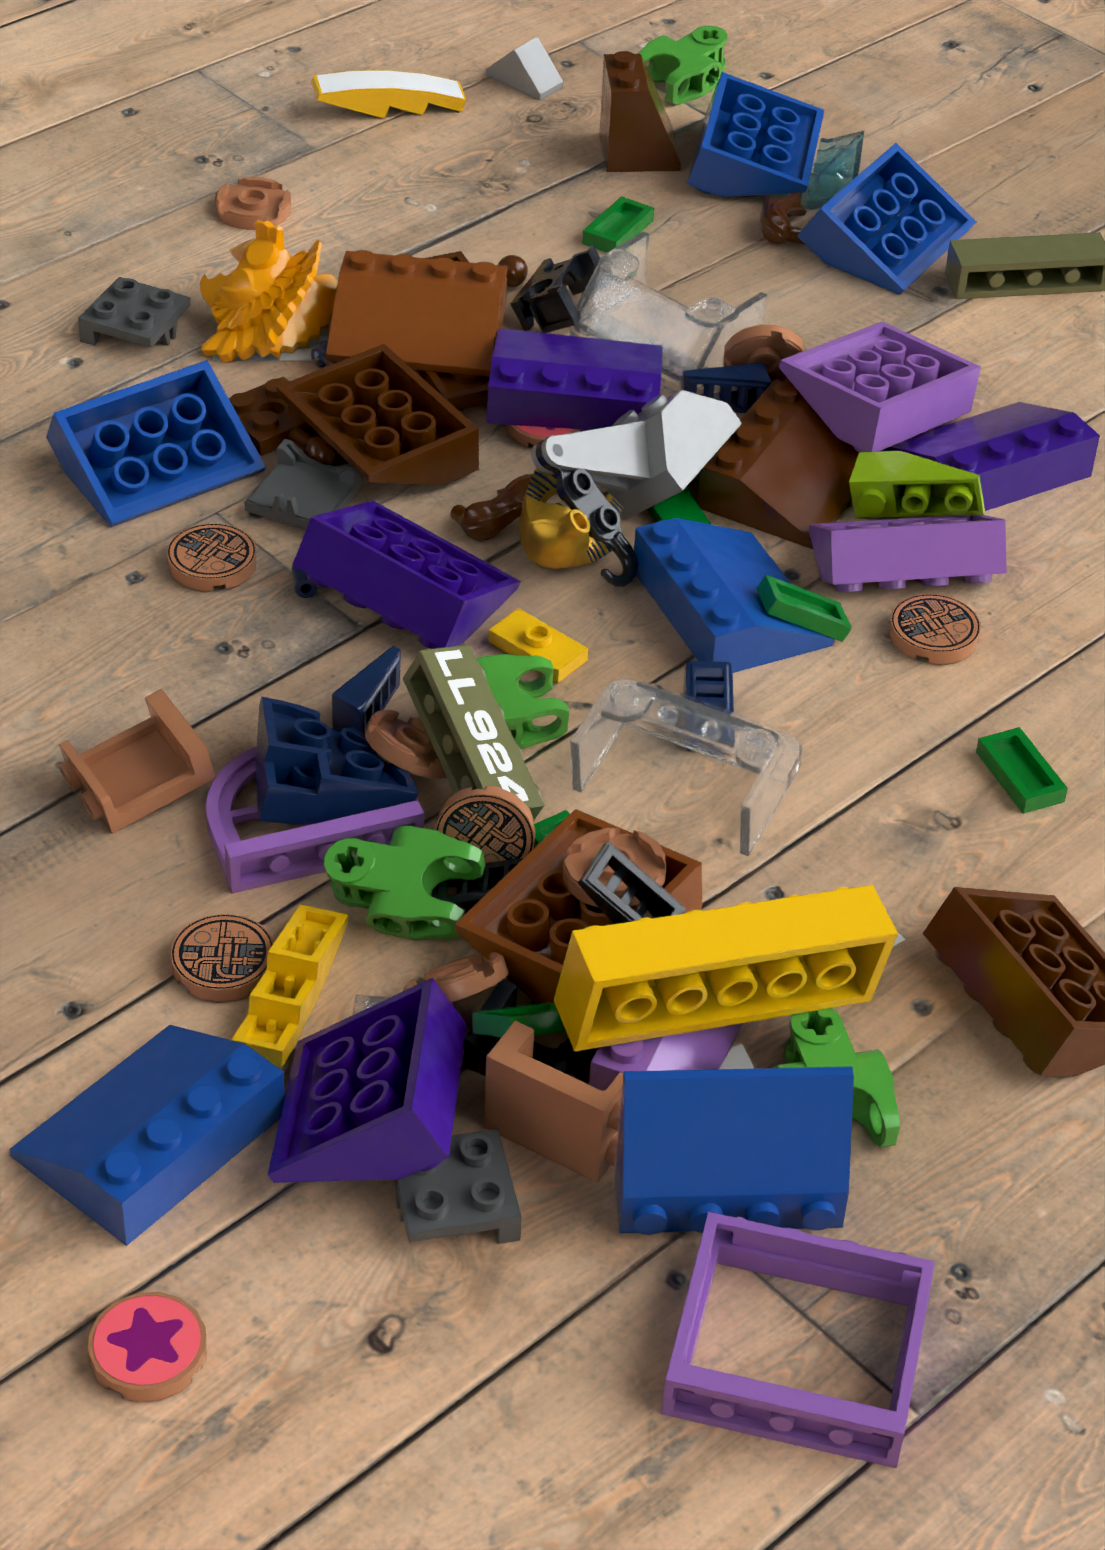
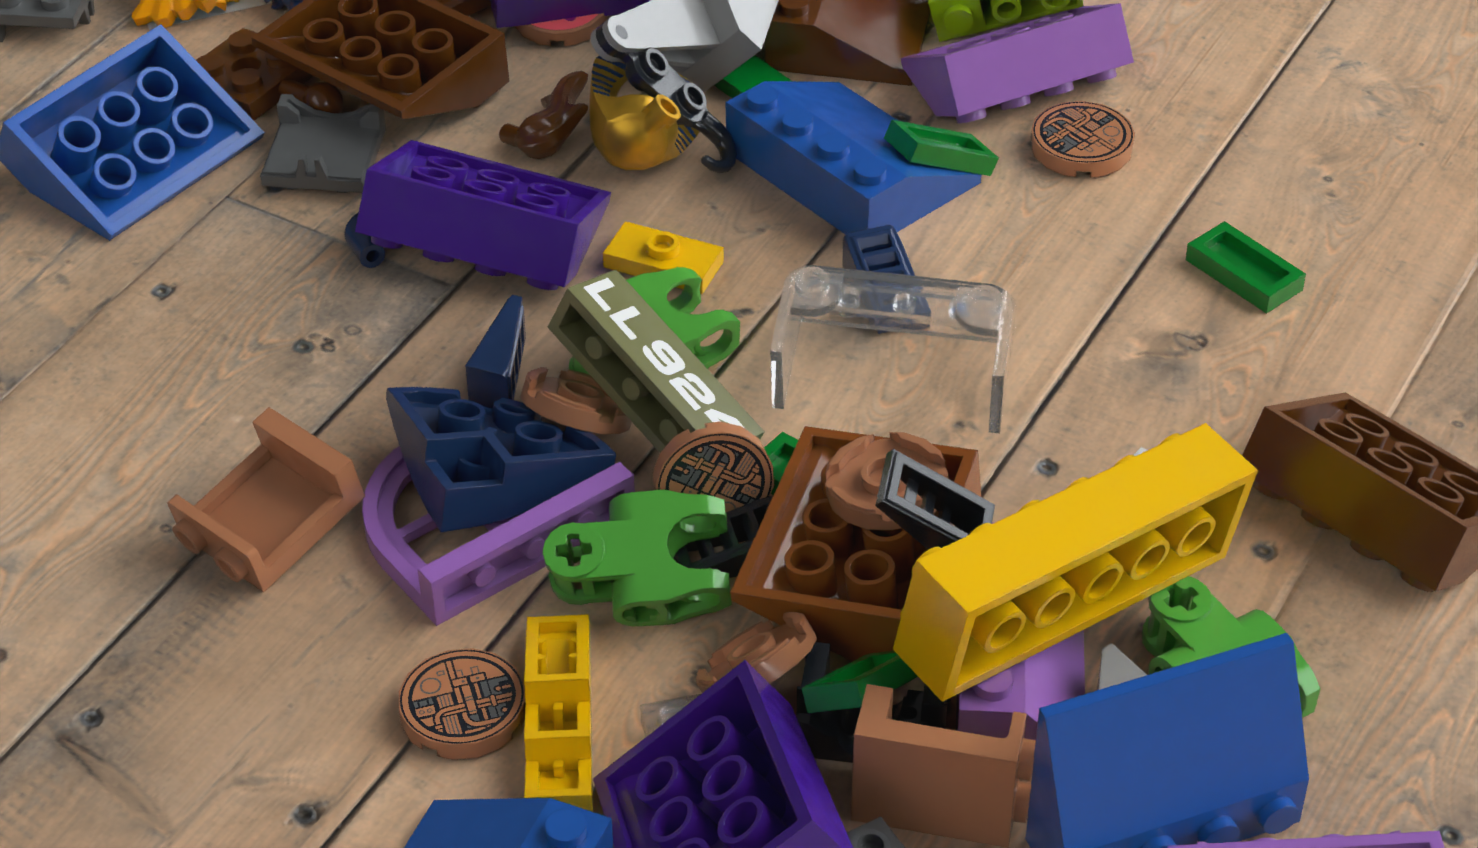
camera: 15 degrees left, 0 degrees up
(211, 557) = (246, 246): nougat tile -> none

